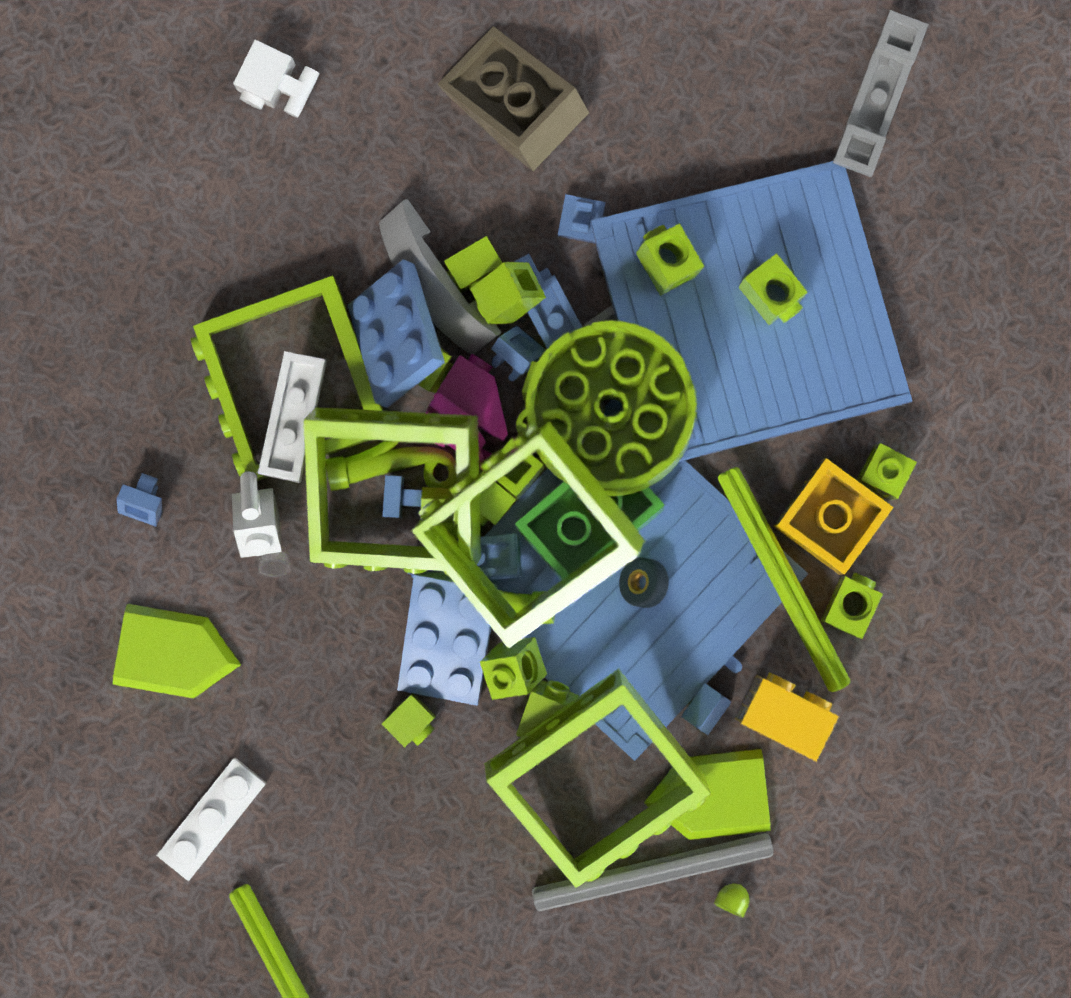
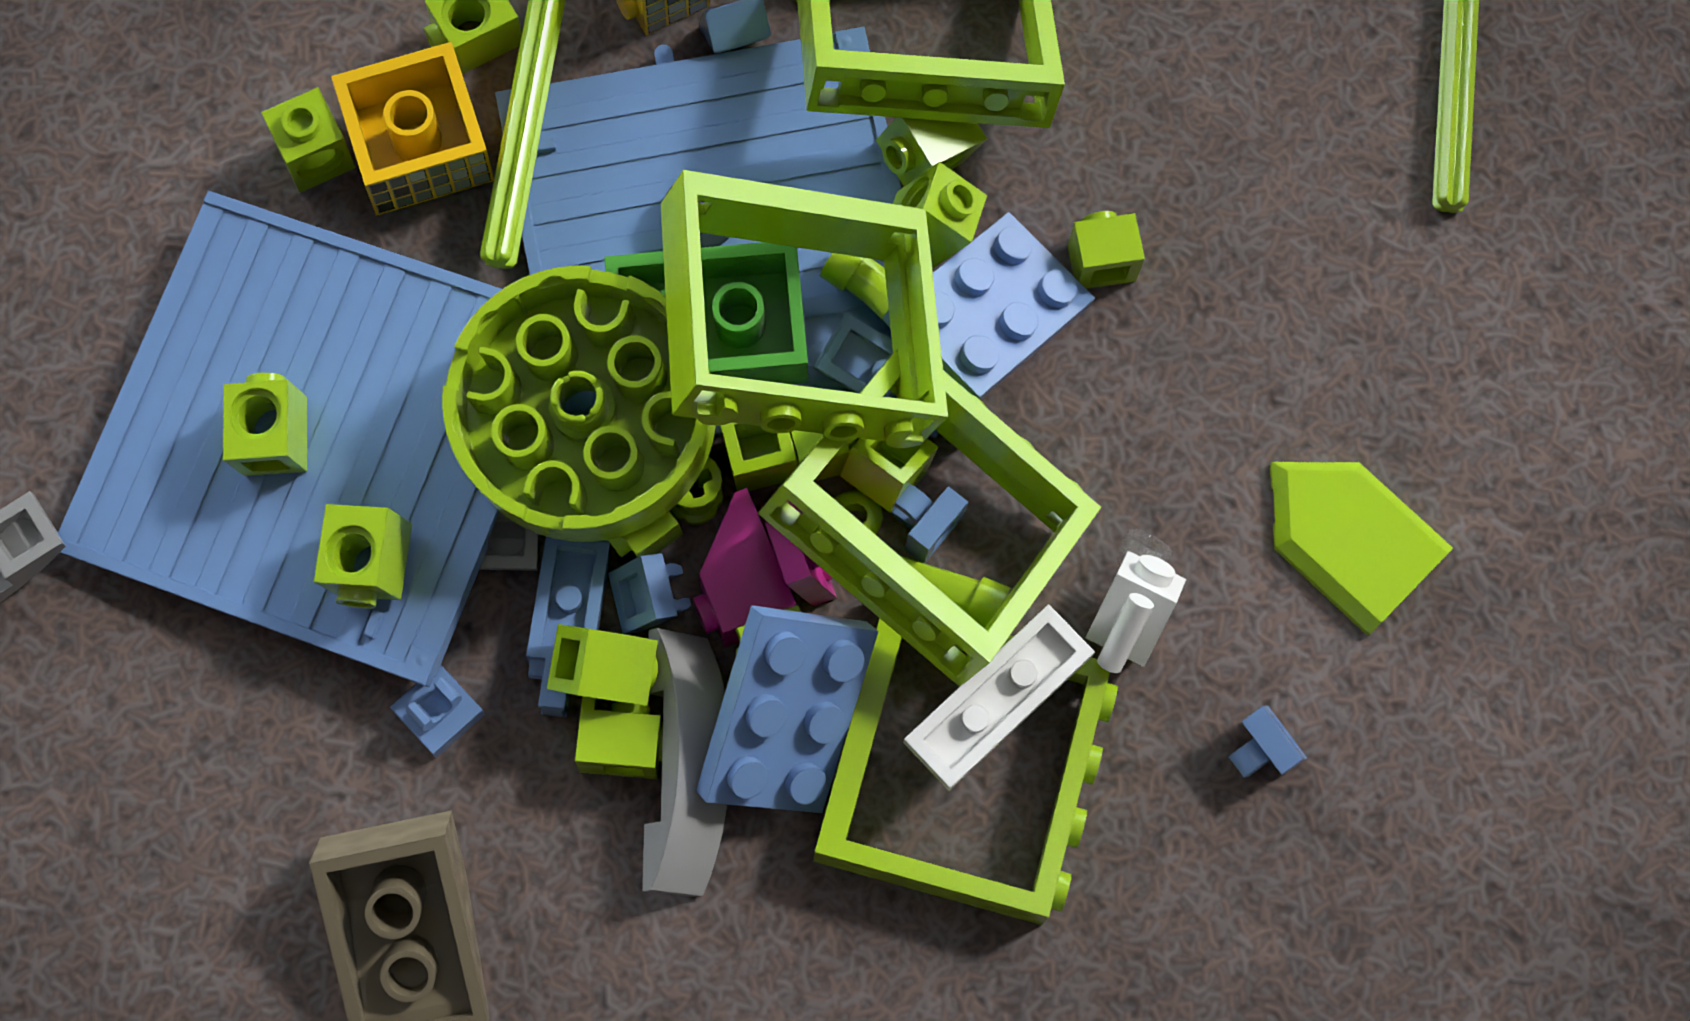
camera: 150 degrees left, 15 degrees down
(211, 819) = (1429, 307): white plate -> none

